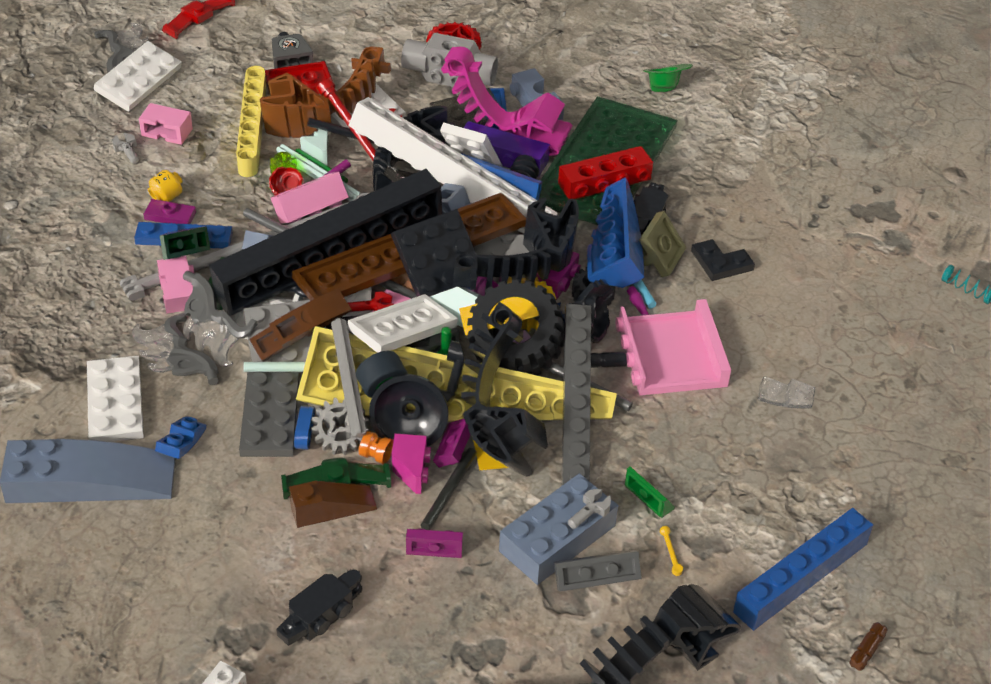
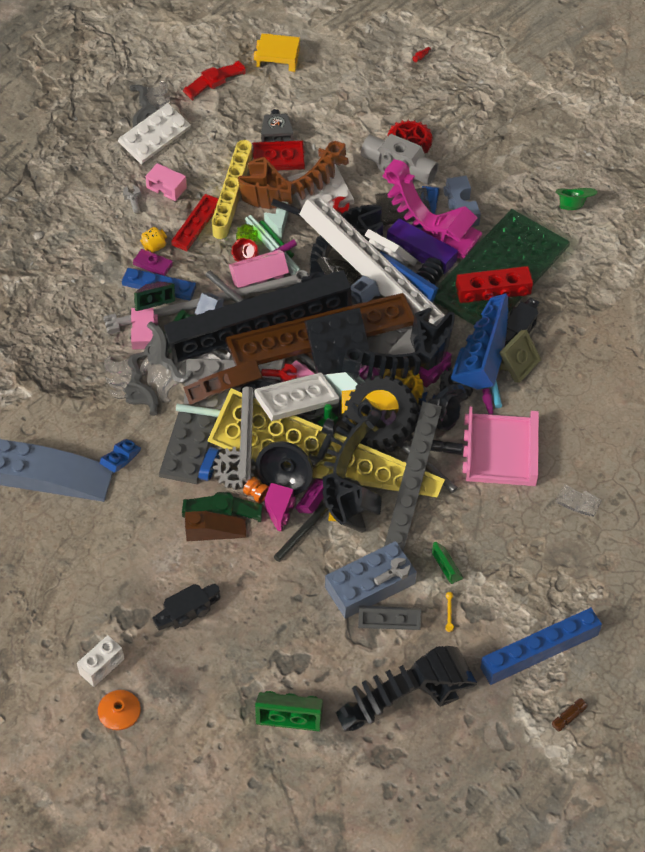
camera: 15 degrees right, 10 degrees up
(114, 399) = (80, 415): white plate -> none
(214, 162) = (195, 223): none -> red plate
(327, 89) = (292, 177): red piece -> none
(378, 369) = (268, 433): black wheel -> none
(434, 543) = (277, 573): magenta plate -> none
(721, 265) = (566, 380): black plate -> none

